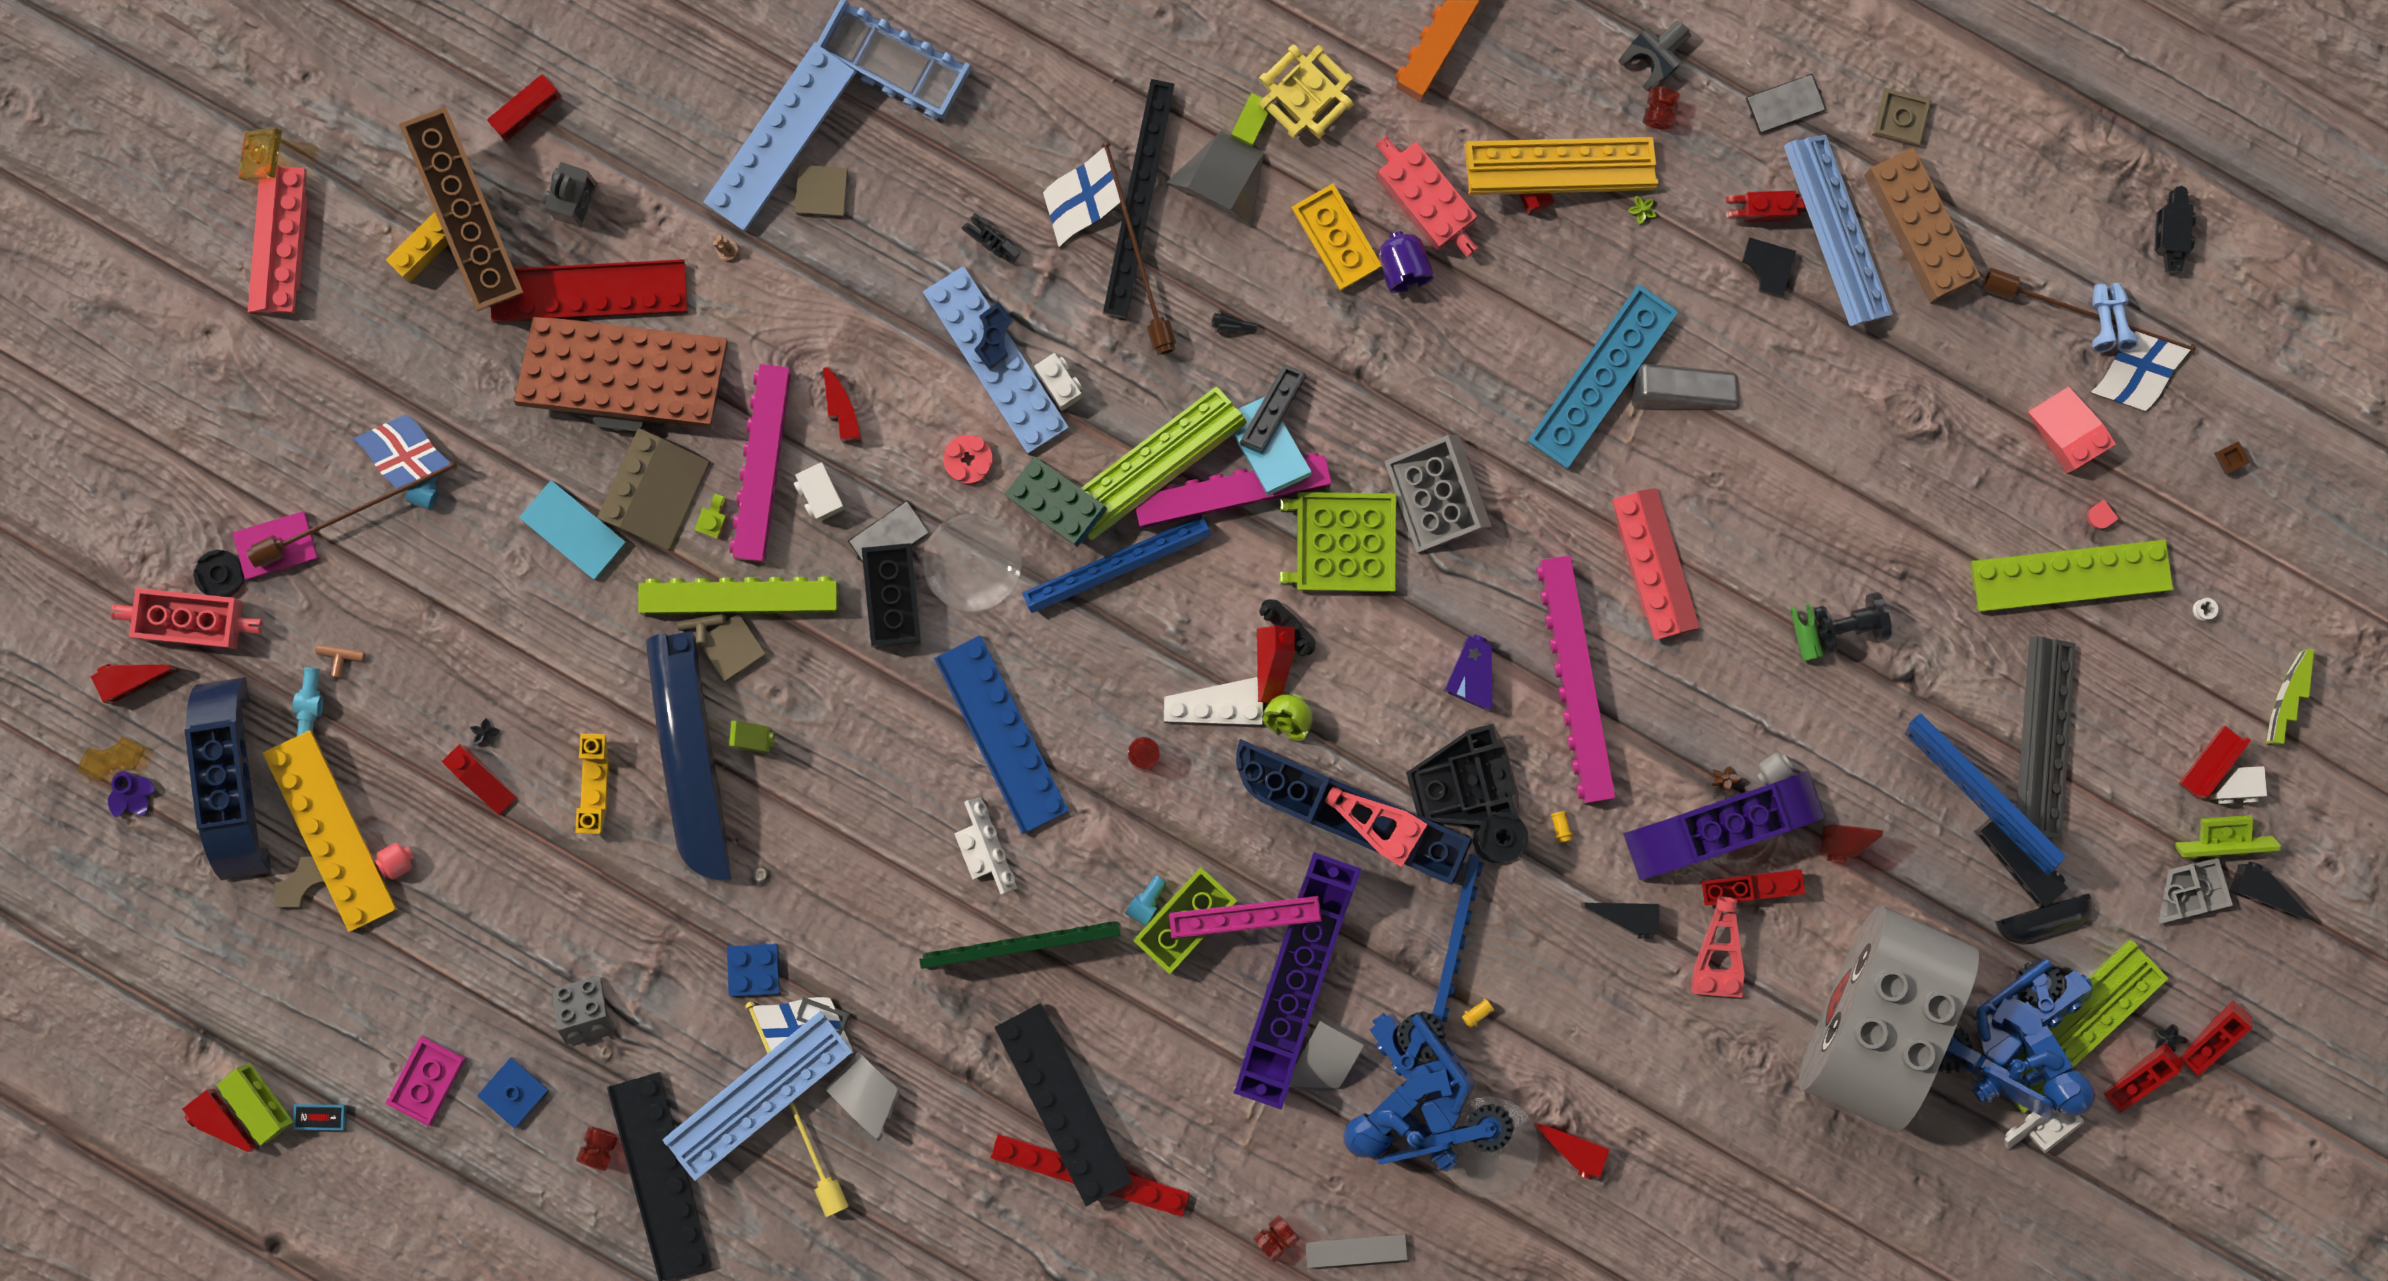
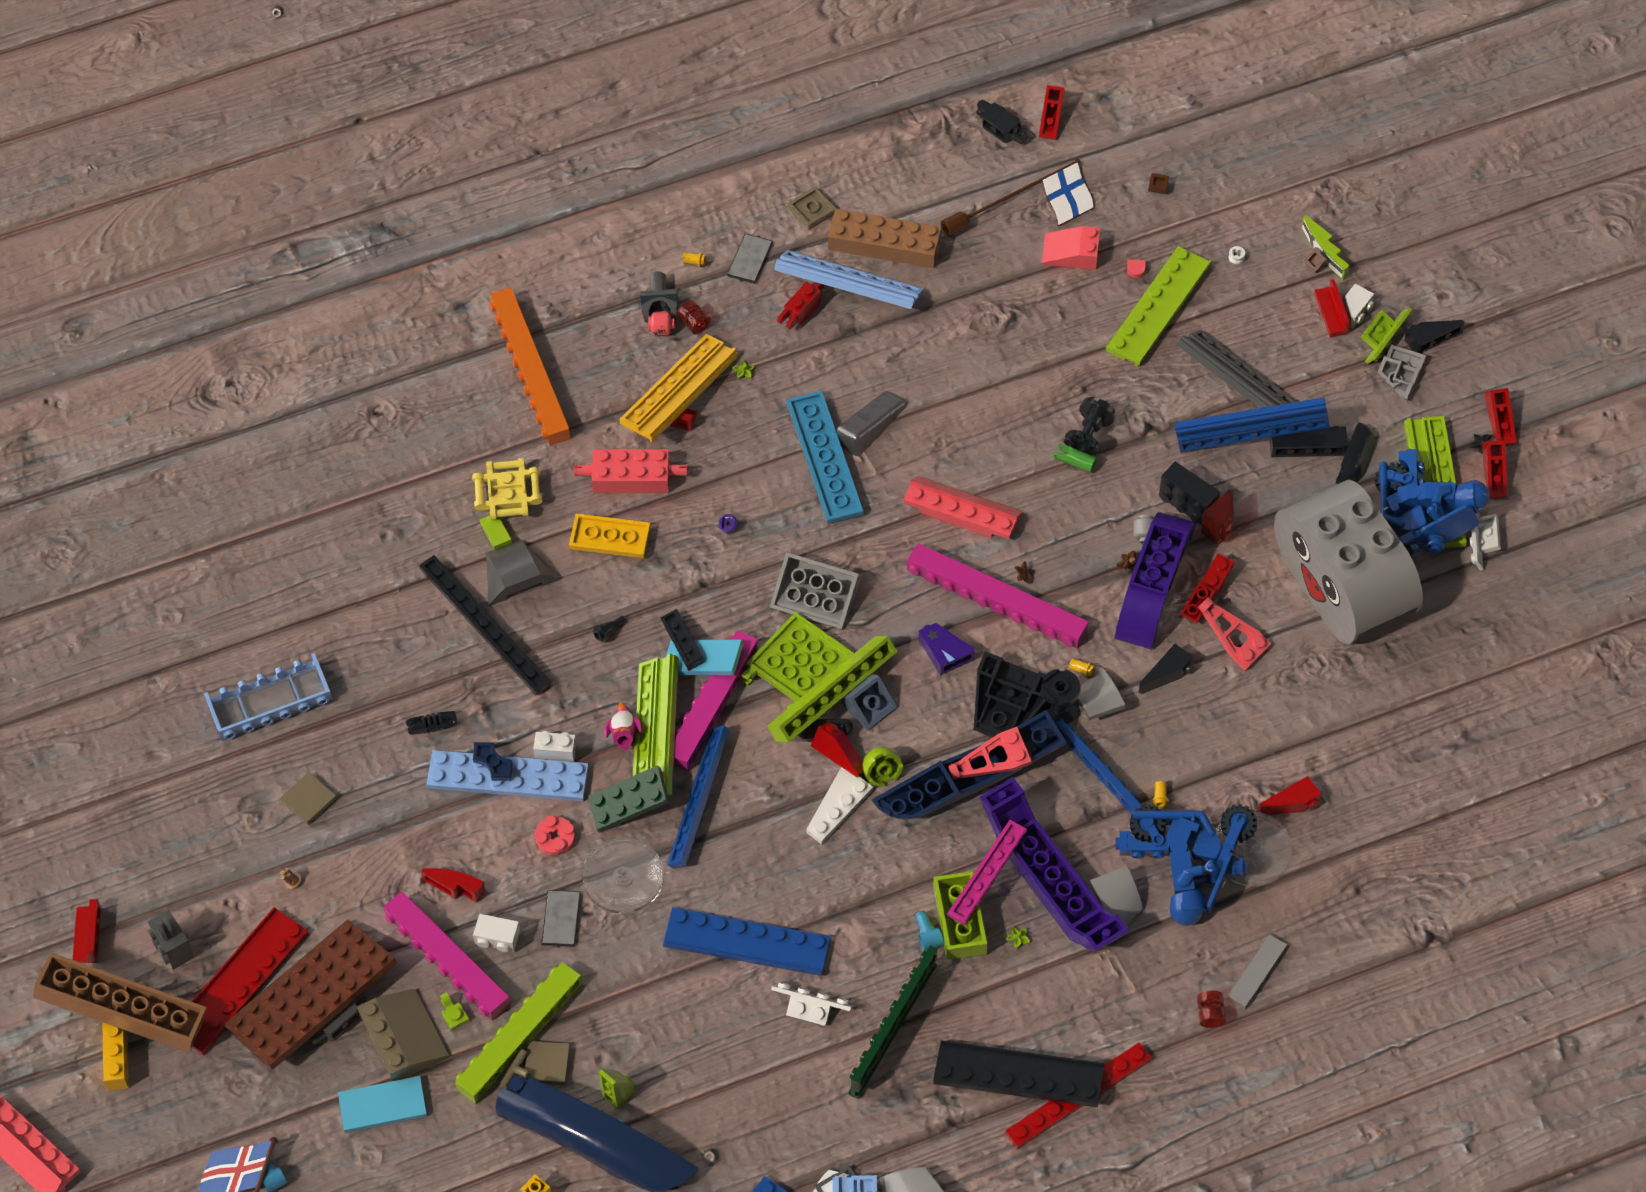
camera: 45 degrees left, 25 degrees down
(779, 137) = (253, 794): light blue plate -> none
(891, 595) = (600, 938): black brick -> none
(1084, 199) = (457, 649): flag -> none
(1131, 430) = (622, 726): none -> dark pink animal
(1143, 753) = (832, 864): clear red wheel -> none
(1211, 990) = (1018, 937): none -> lime plant
(1332, 603) = (831, 689): none -> lime brick
(1353, 644) = (869, 701): none -> sand blue slope
(1404, 262) = (660, 507): dark purple cylinder -> none
(1446, 343) = (728, 523): none -> dark purple tile
(1540, 870) = (1099, 696): none -> light grey slope
(1626, 686) = (1024, 573): none -> reddish brown plant
(1627, 81) = (661, 323): none -> coral head
(1736, 48) = (691, 258): none -> yellow pin
(1770, 264) = (837, 328): black tile -> none
(1851, 786) = (1187, 492): none -> black brick
(2118, 300) = (1013, 179): light blue piece -> none
(2232, 274) = (1051, 112): none -> red slope
(2265, 700) = (1316, 260): none -> reddish brown plate

